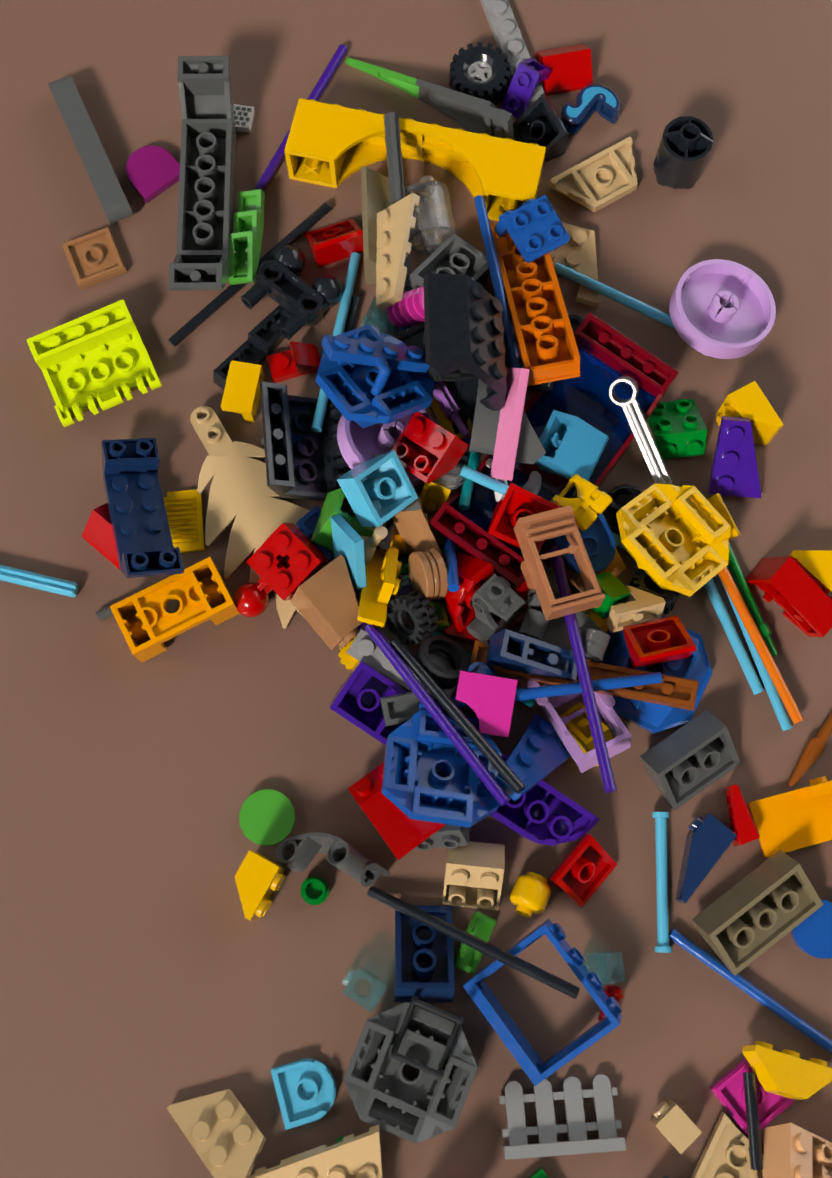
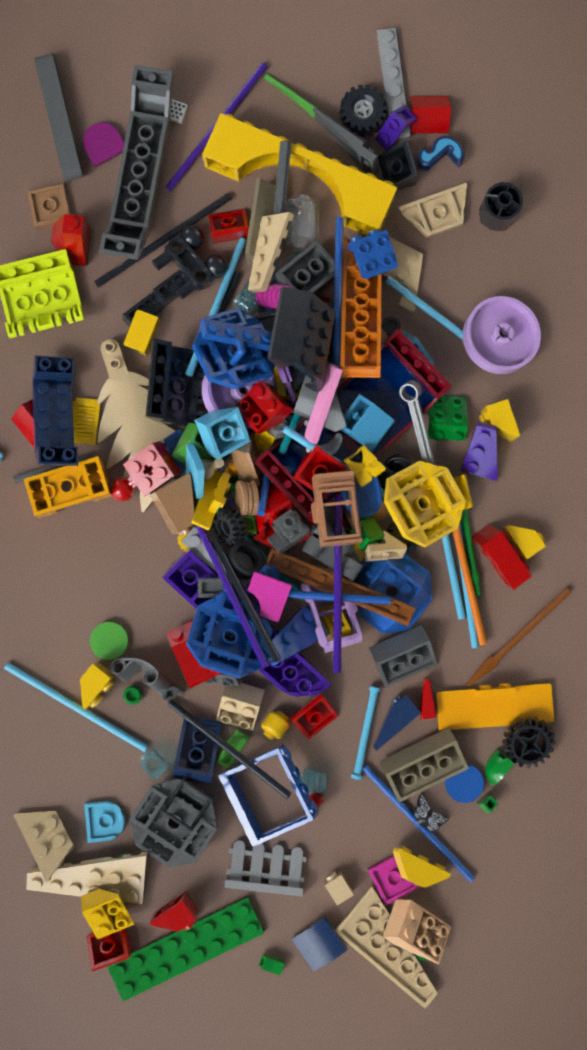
camera: 10 degrees right, 10 degrees up
(130, 280) = (72, 234): none -> red slope
(236, 924) = (76, 707): none -> medium azure piece
(246, 237) = (164, 214): bright green slope -> none
(298, 361) = (183, 316): red slope -> none
(530, 656) = (305, 569): dark blue slope -> none
(658, 642) = (395, 574): red slope -> none
(752, 1121) = (388, 893): black bar -> none
(780, 990) = (426, 816): none -> black animal

